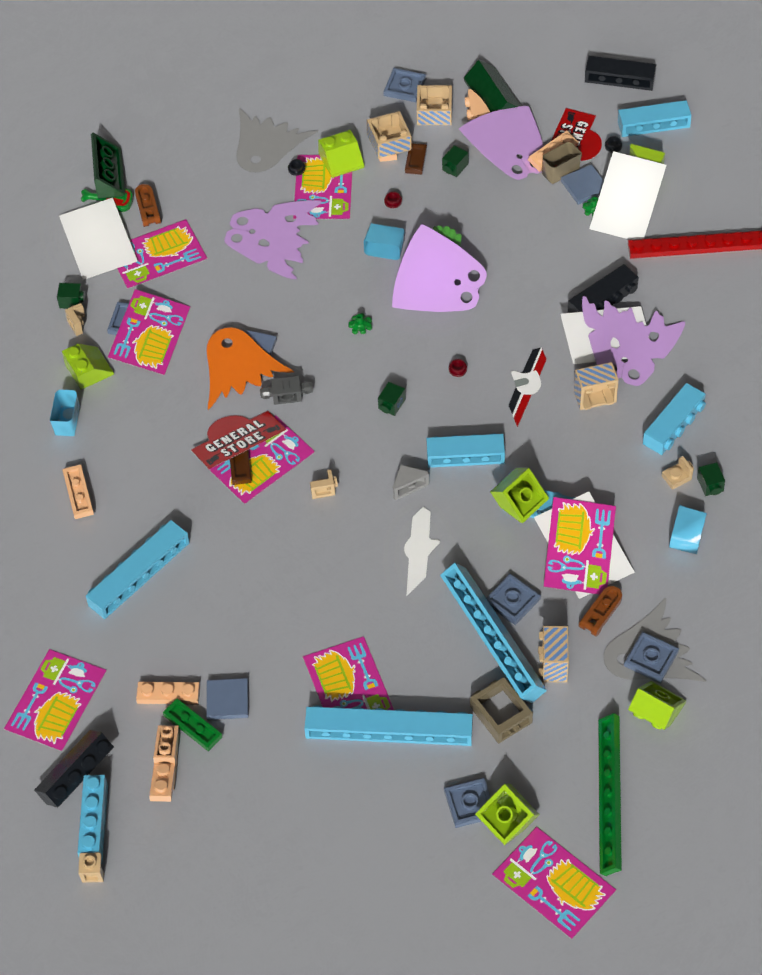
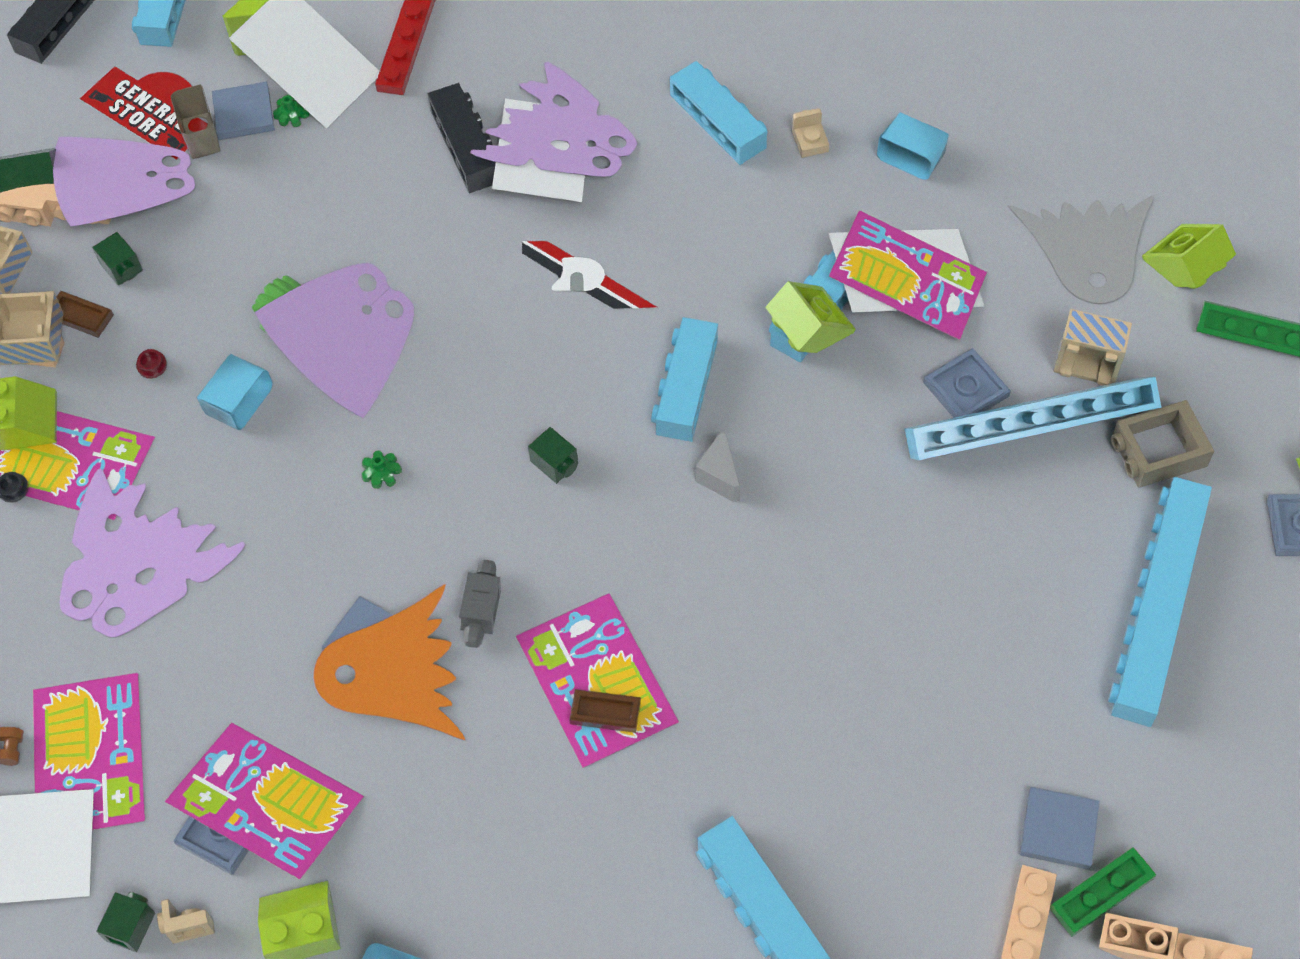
camera: 75 degrees left, 5 degrees up
(235, 435) = (545, 704): red sticker -> none
(324, 487) = (691, 582): tan bracket -> none
(347, 677) = (1058, 642): sticker -> none
(418, 548) = (839, 488): white sticker -> none
(457, 368) = (524, 354): dark red plate -> none
(536, 158) = (162, 130): light nougat plate -> none
(596, 386) = (637, 181): tan container -> none
(601, 610) = (1017, 280): dark orange plate -> none
(613, 144) = (186, 56): black plate -> none
(651, 657) = (1106, 244): sand blue tile -> none
(711, 479) = (836, 97): dark green brick -> none

